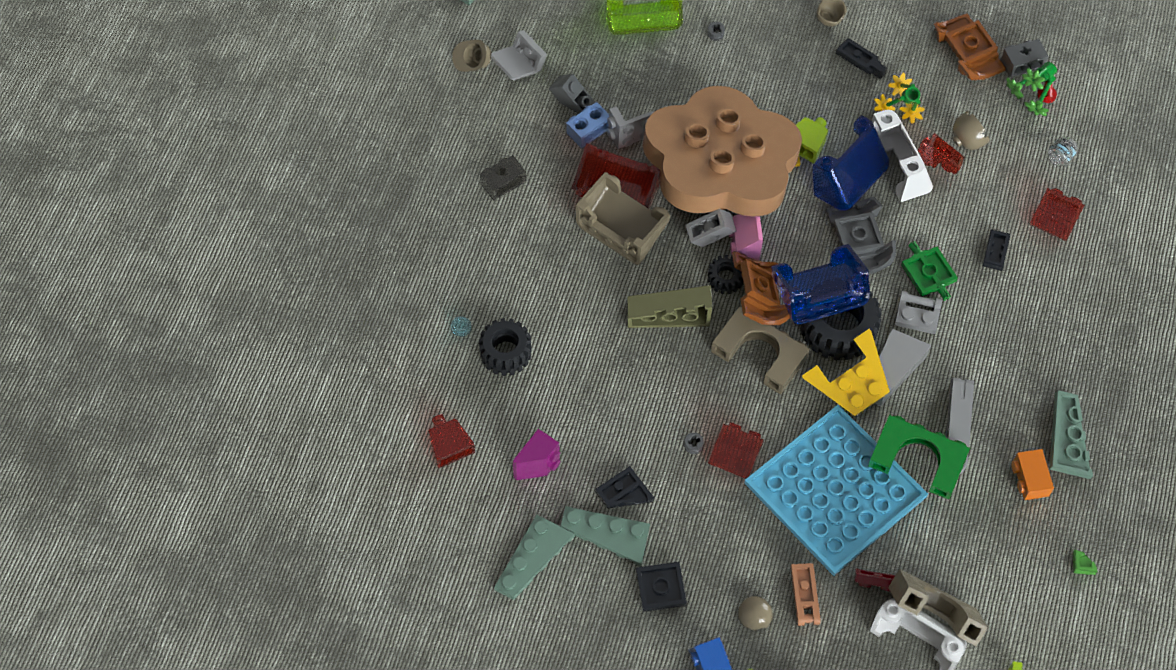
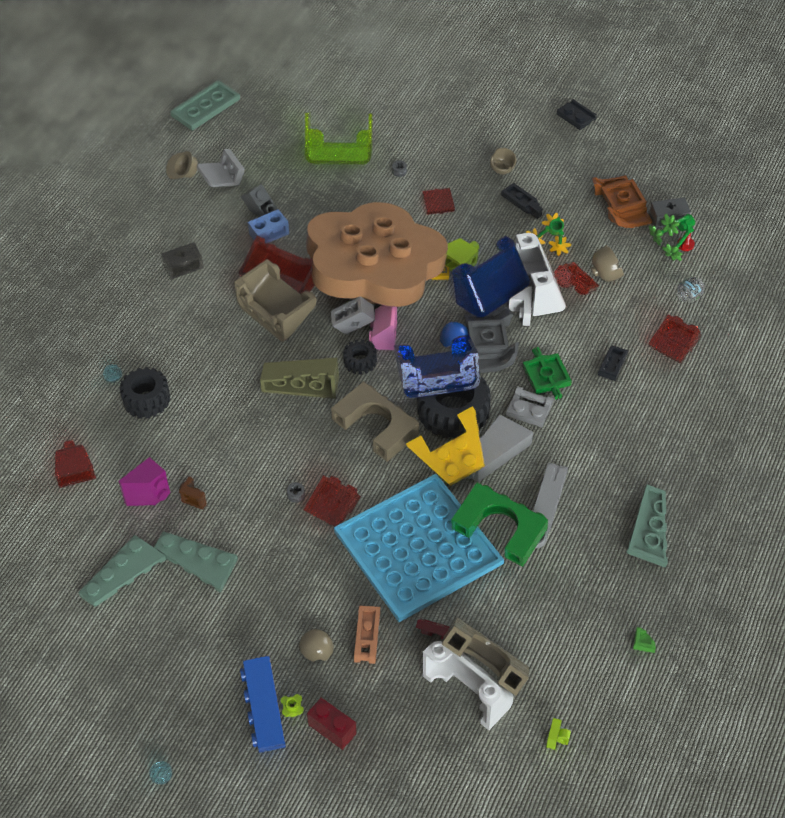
camera: 10 degrees right, 10 degrees down
(586, 462) = (192, 495): none -> reddish brown bracket
(624, 490) = (220, 524): black wing -> none
(625, 132) = (294, 231): light grey bracket -> none
(661, 586) = (232, 611): black plate -> none
(762, 295) = (382, 371): dark orange piece -> none
(768, 68) = (438, 201): none -> clear red piece
(821, 235) = (451, 331): none -> blue hair
(889, 189) = (522, 303): none -> white slope
(1032, 474) = (607, 554): orange brick -> none

